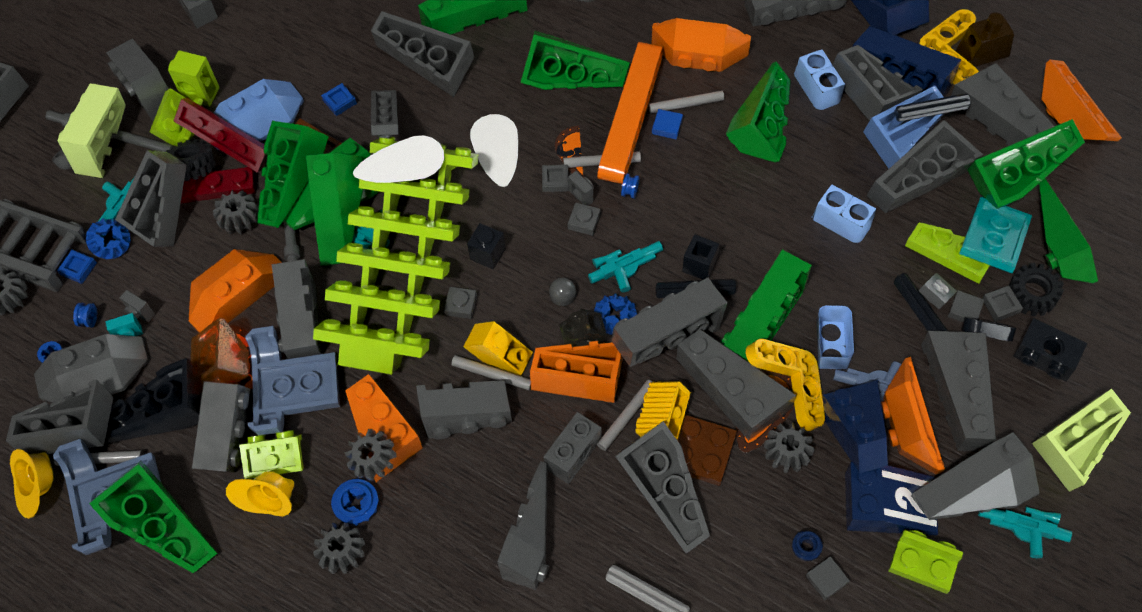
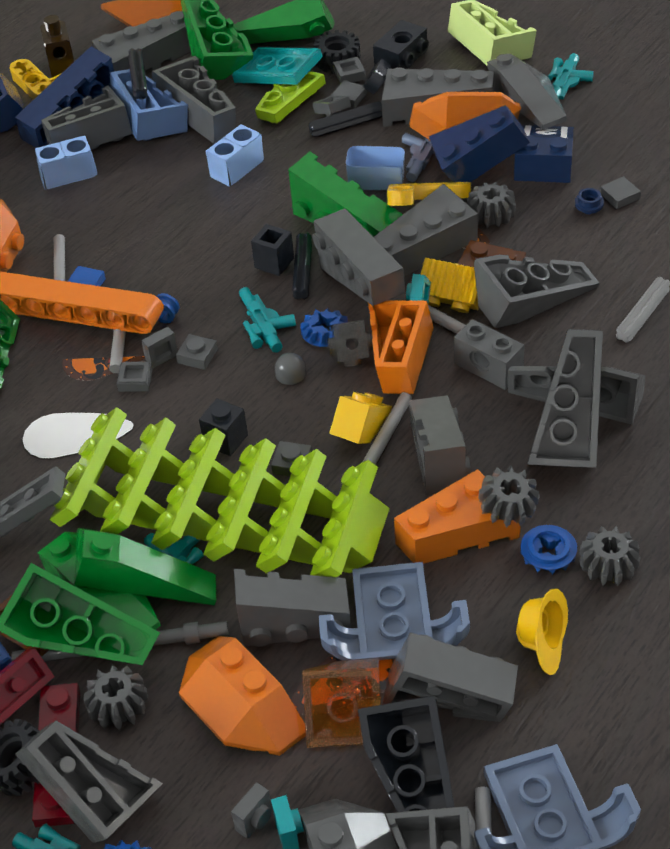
camera: 85 degrees left, 15 degrees down
(151, 516) = (576, 741): green wedge -> none
(274, 454) = (492, 628): lime bracket -> none
(402, 161) = (104, 474): white sticker -> none
(476, 509) = (571, 411): none -> dark grey wedge
(636, 381) = (419, 288): none -> teal plate
(761, 118) = (105, 206): green wedge -> none
(925, 560) = (600, 133): lime bracket -> none

